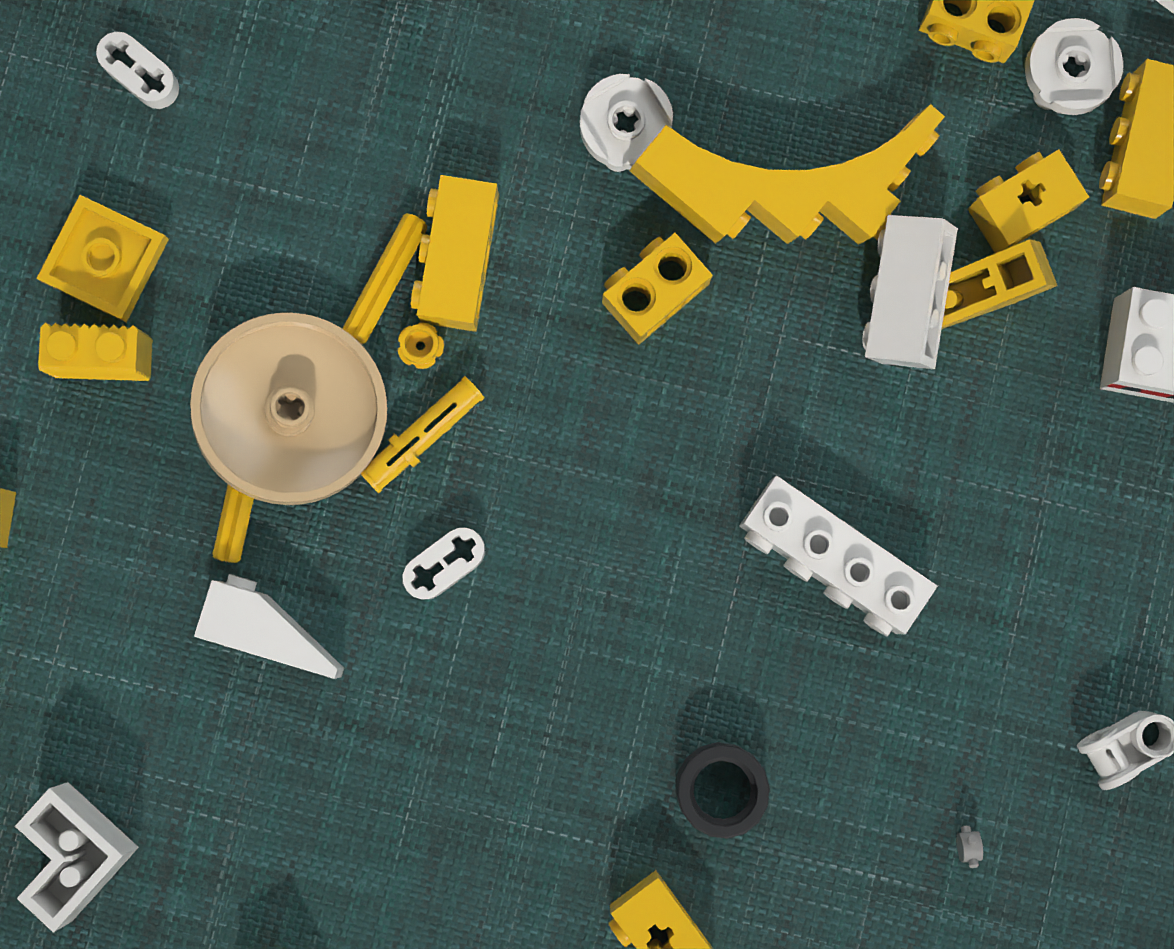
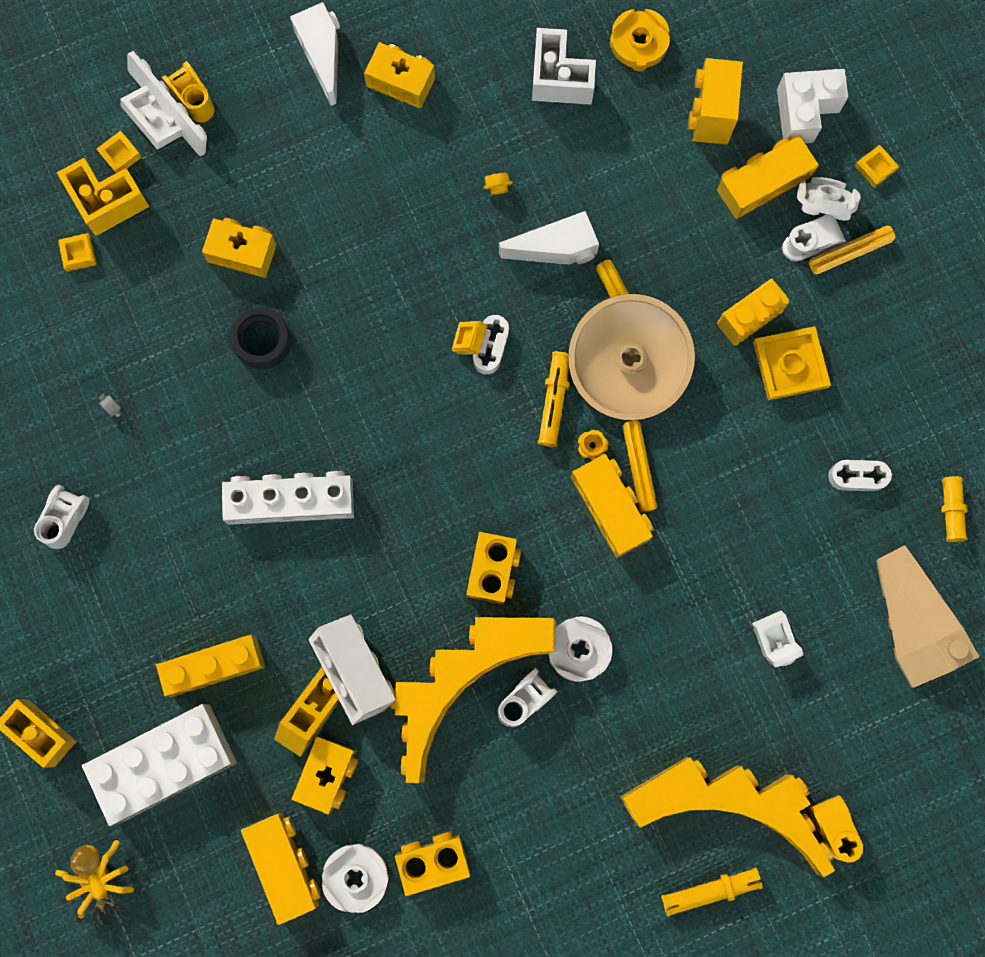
camera: 145 degrees right, 5 degrees down
(271, 765) = (497, 183): none -> yellow plate
(464, 589) = (469, 337): none -> yellow tile
(731, 112) = (526, 698): none -> white piece
(1072, 424) = (210, 666): none -> yellow brick

